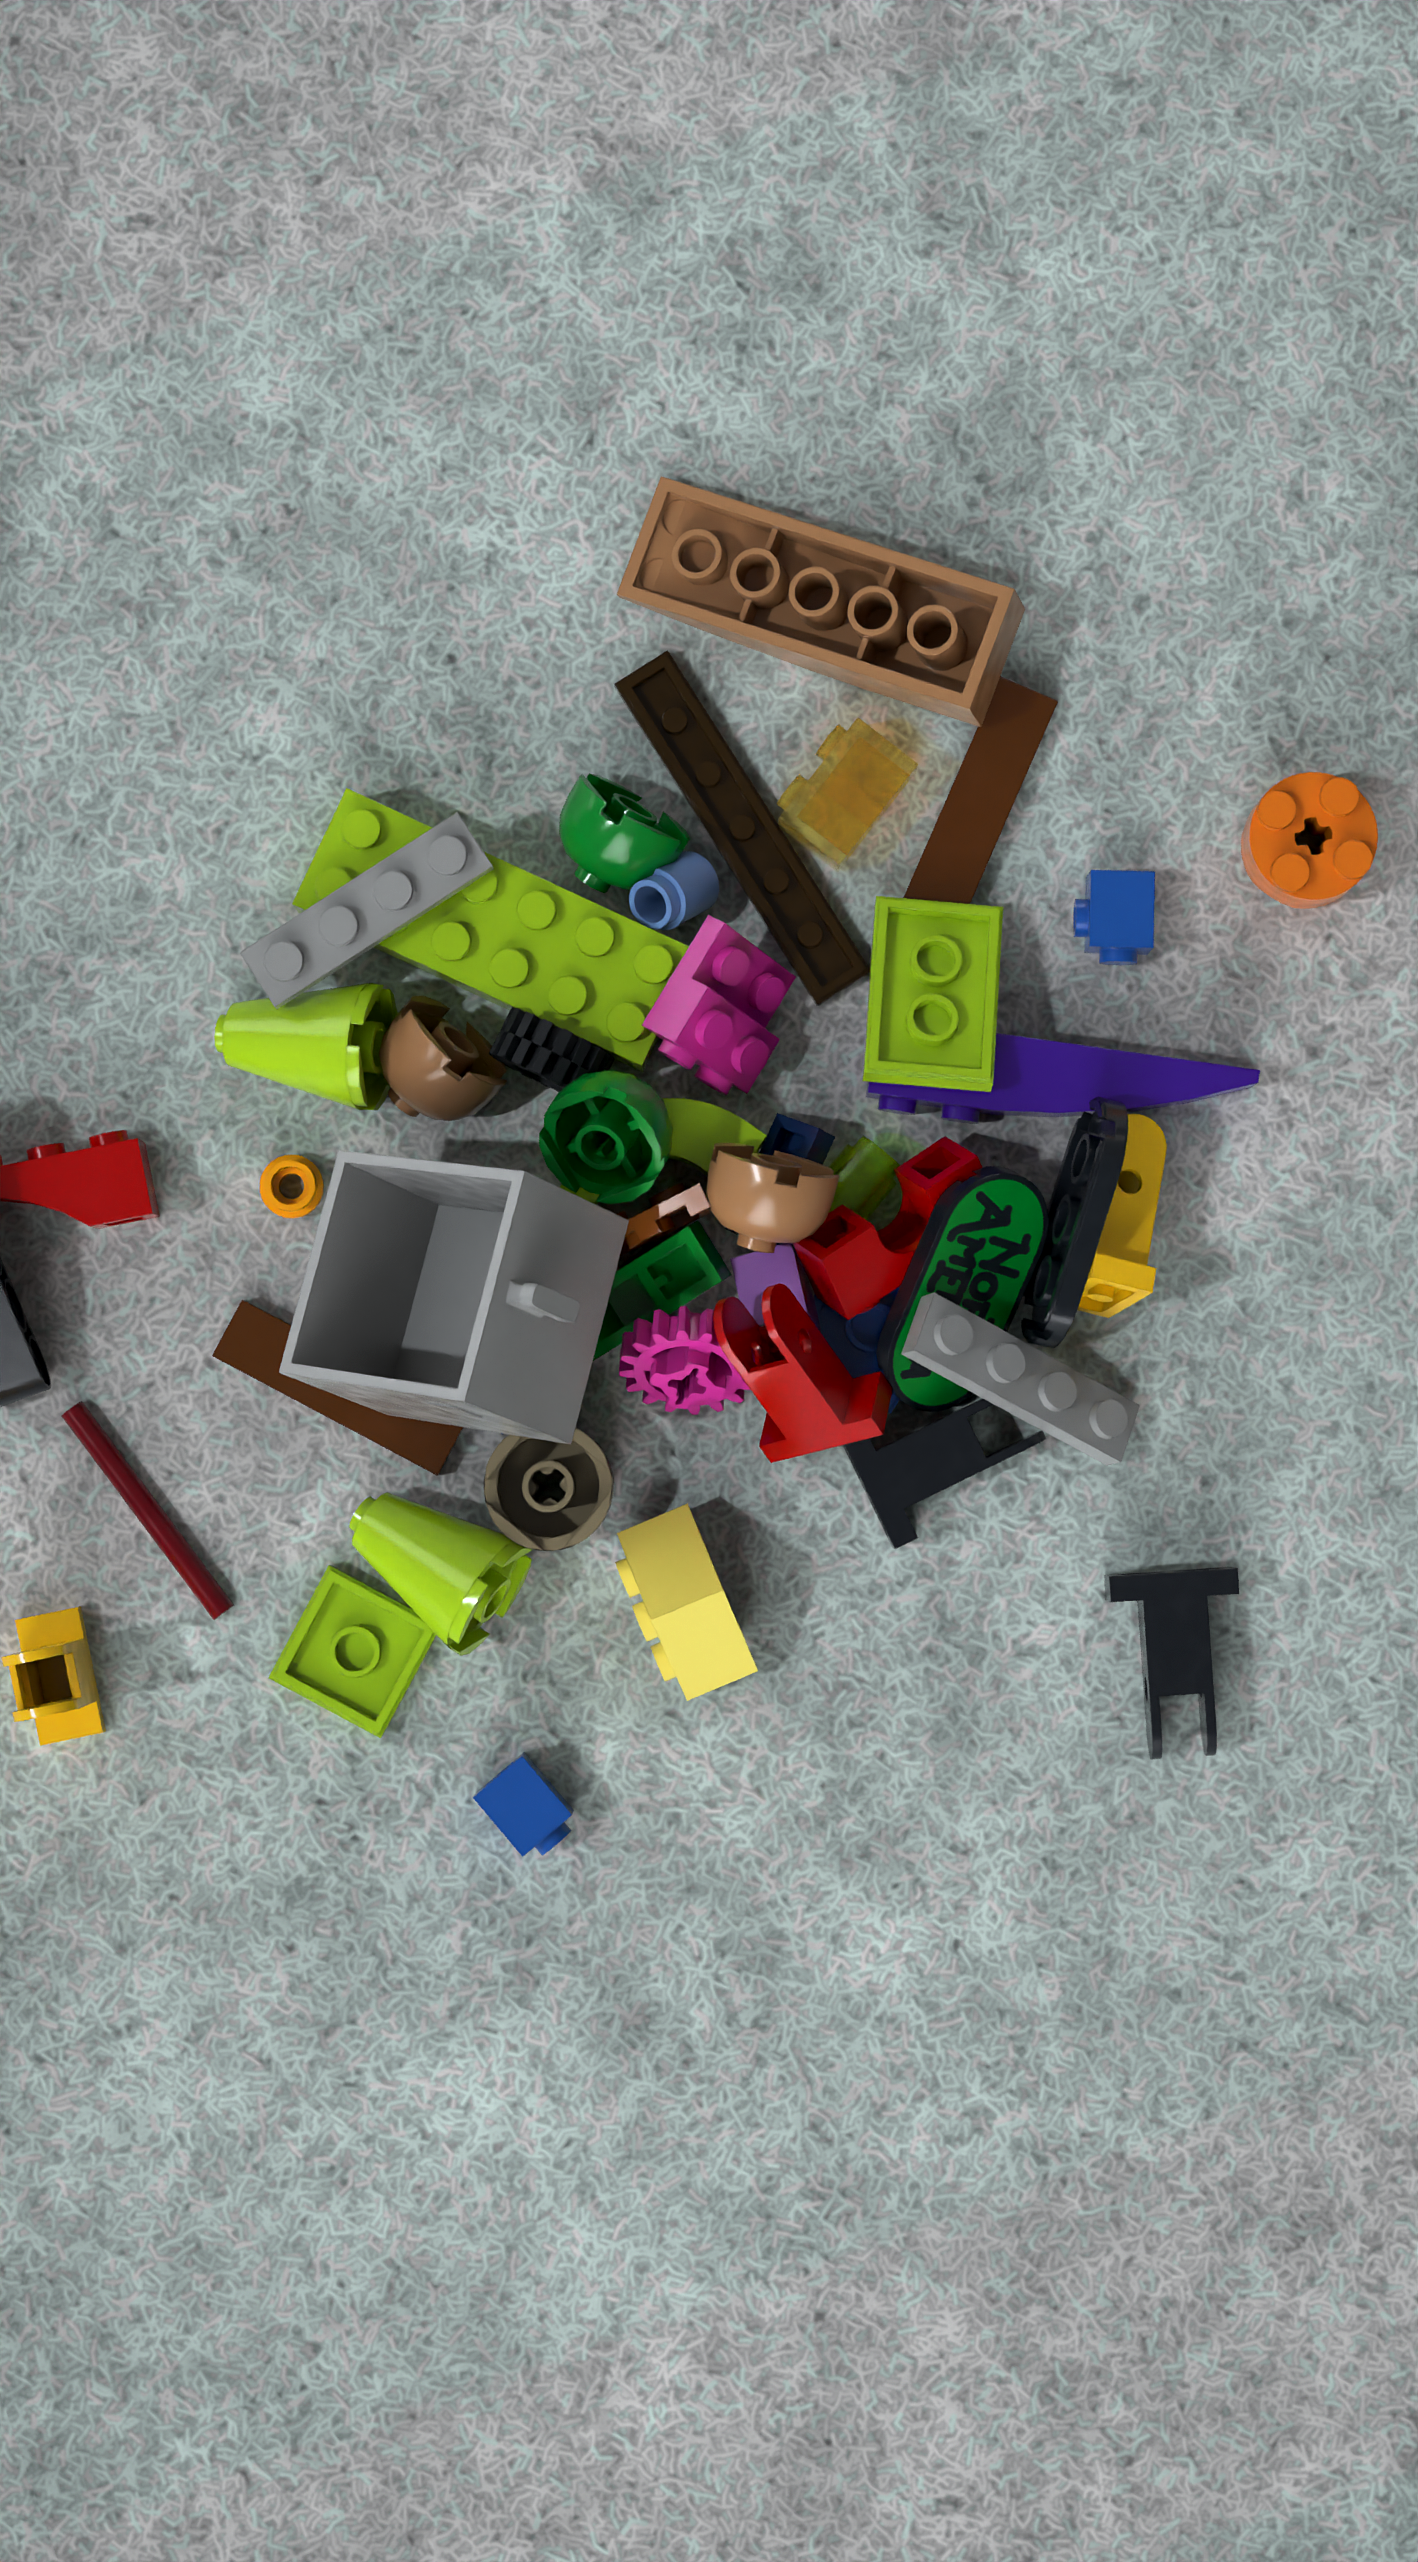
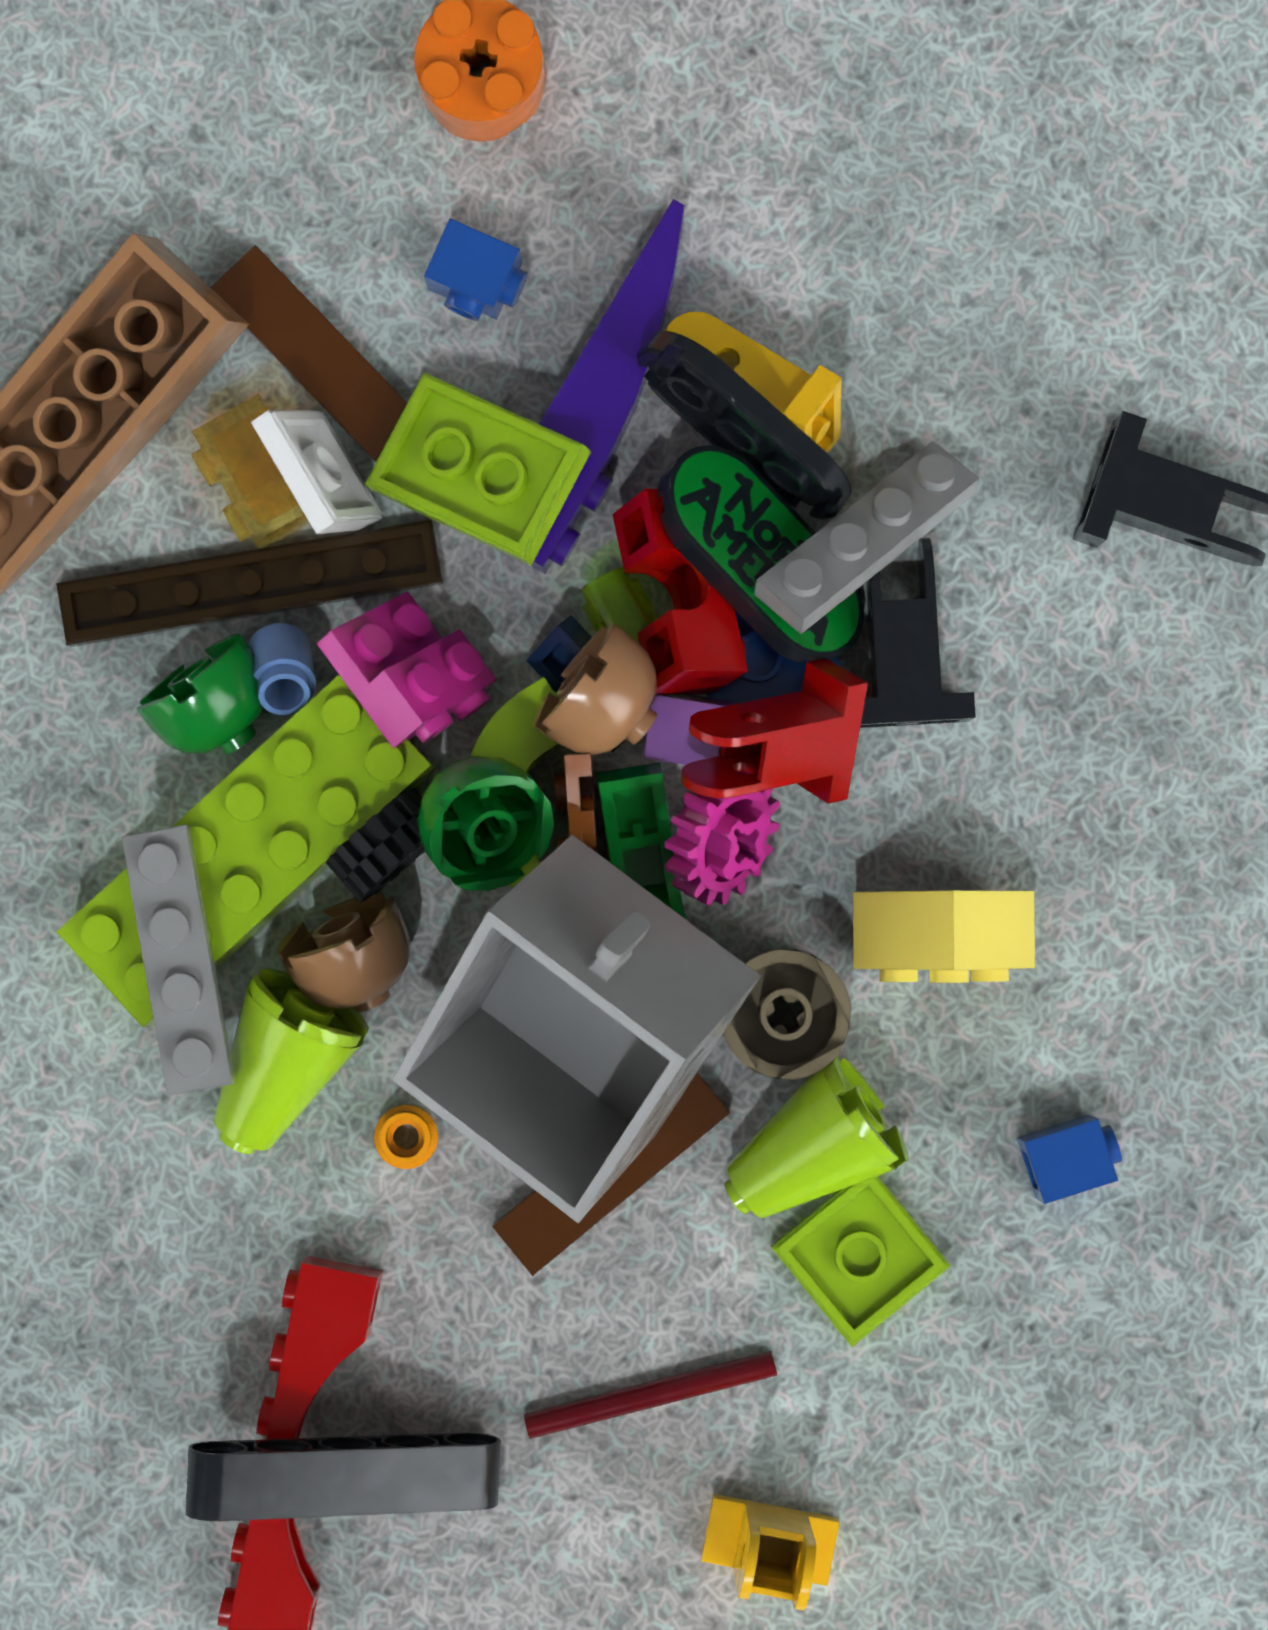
camera: 65 degrees left, 0 degrees up
(870, 848) = (317, 470): none -> white tile

